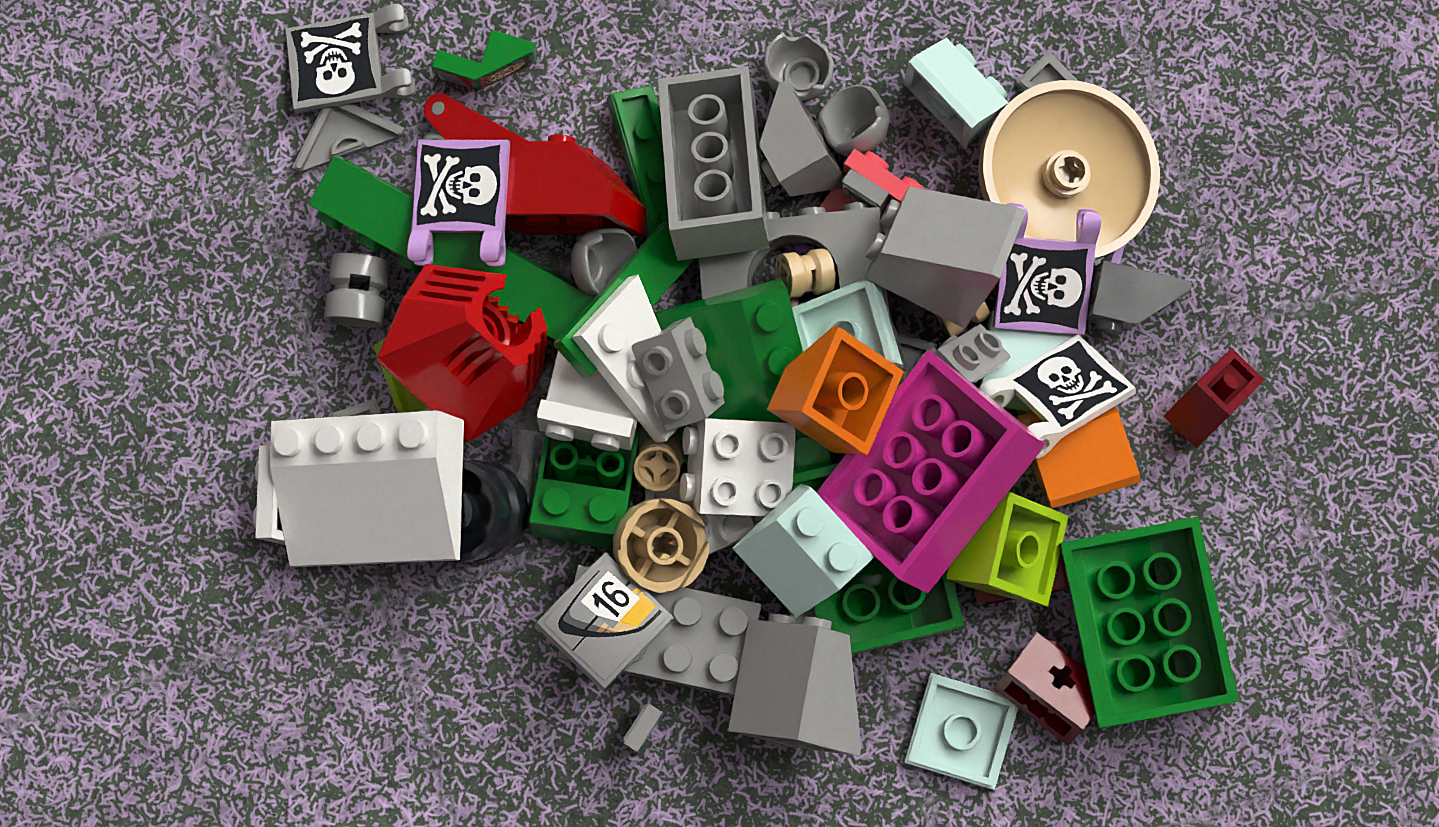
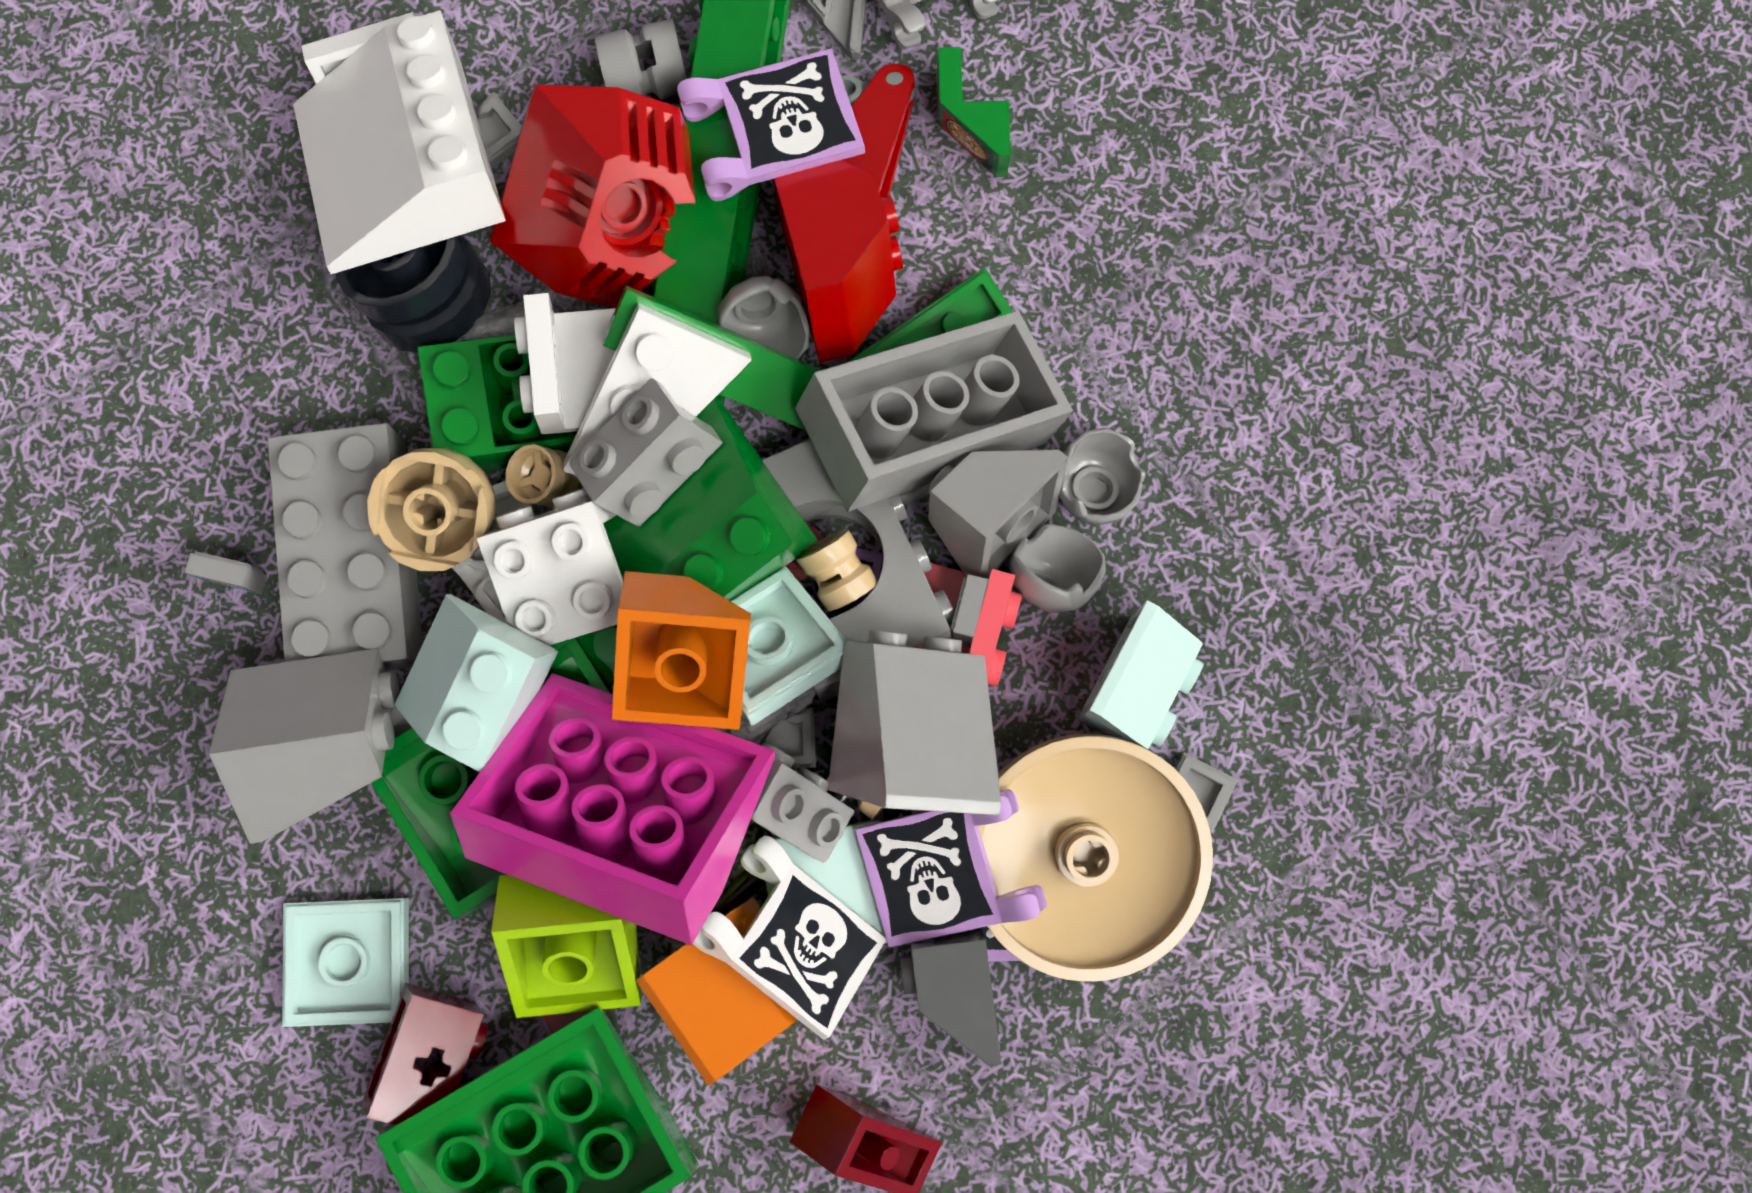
camera: 70 degrees right, 0 degrees up
(603, 621) = (312, 472): slope -> none

